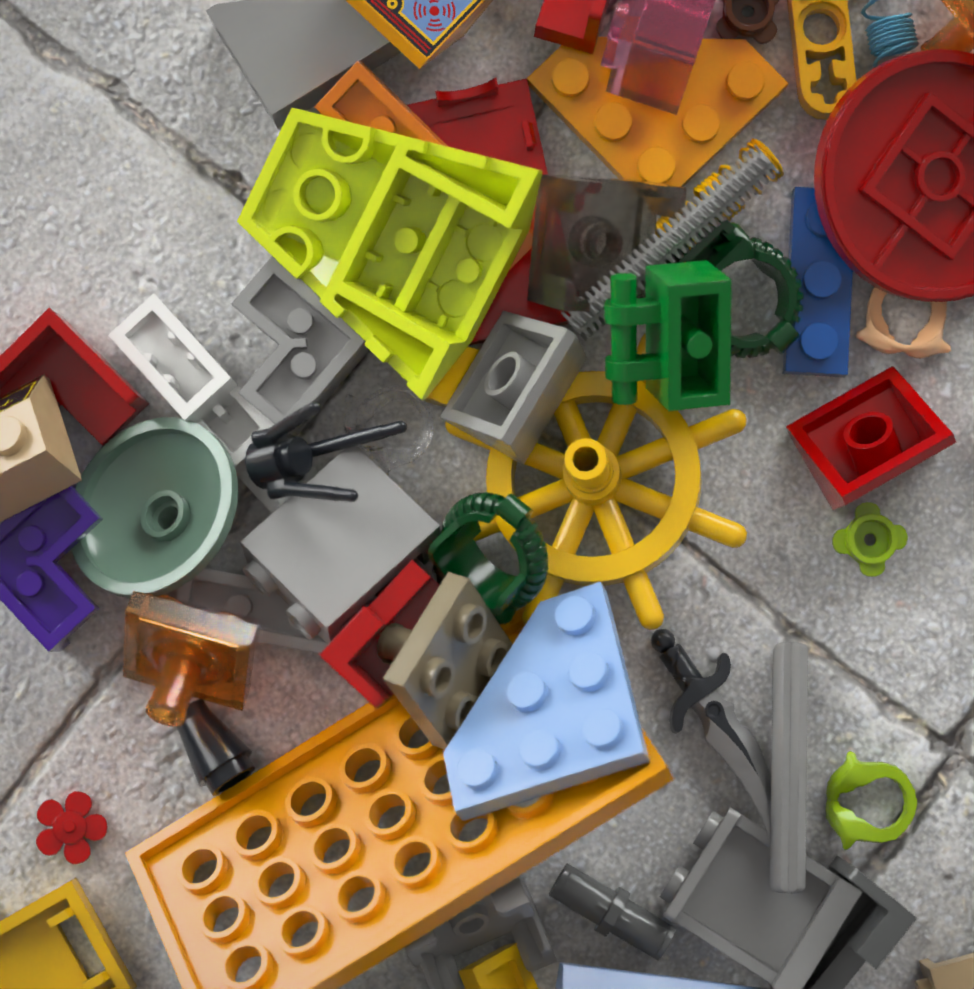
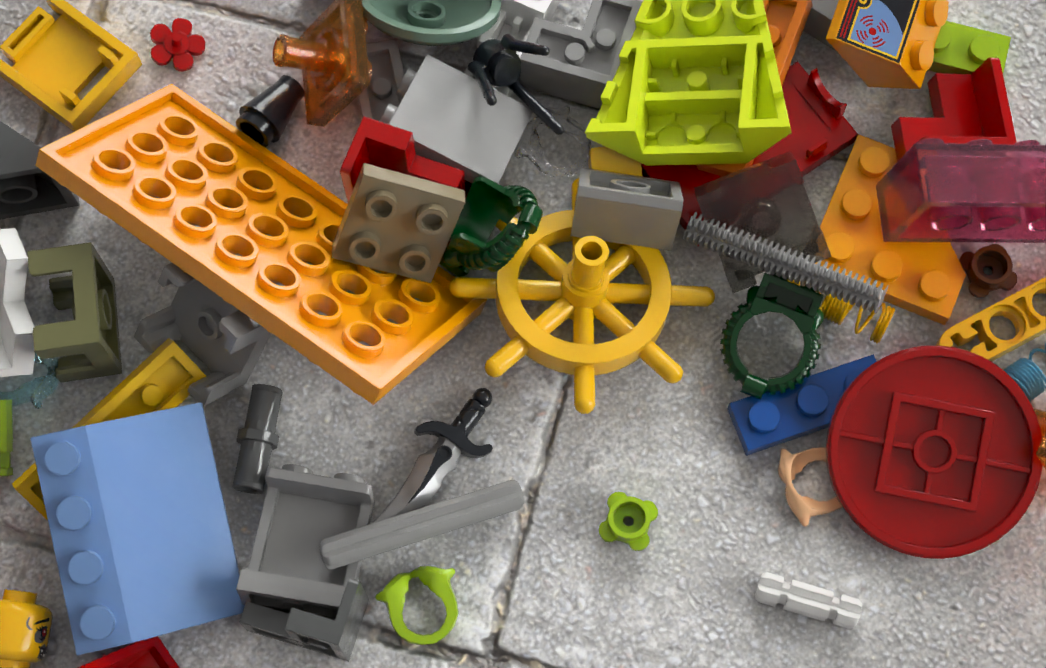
camera: 60 degrees right, 15 degrees down
(550, 712) = (388, 305): light blue plate -> none
(685, 336) = (719, 293): green brick -> none
(868, 437) = (703, 486): red slope -> none

